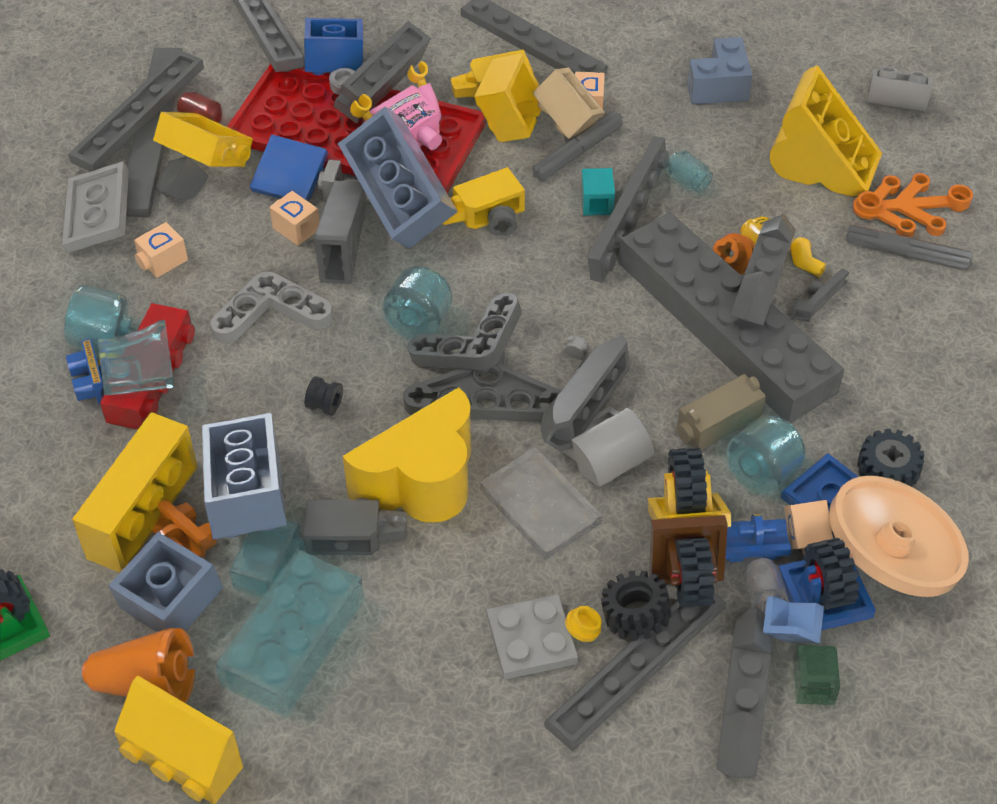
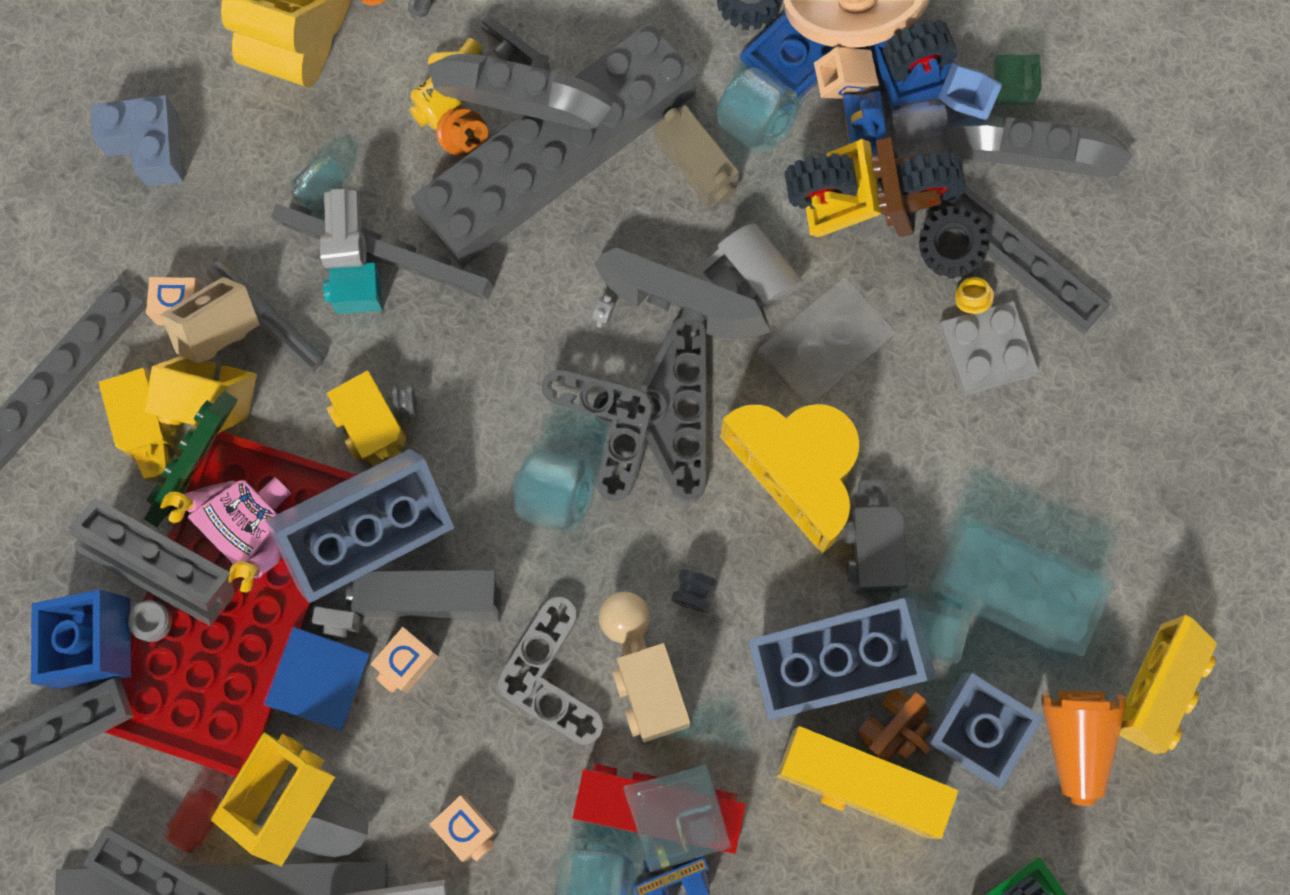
camera: 90 degrees left, 25 degrees up
(243, 352) = (643, 672): none -> tan brick
(461, 82) = (194, 447): none -> dark green plate
(627, 167) = (343, 241): none -> light grey piece

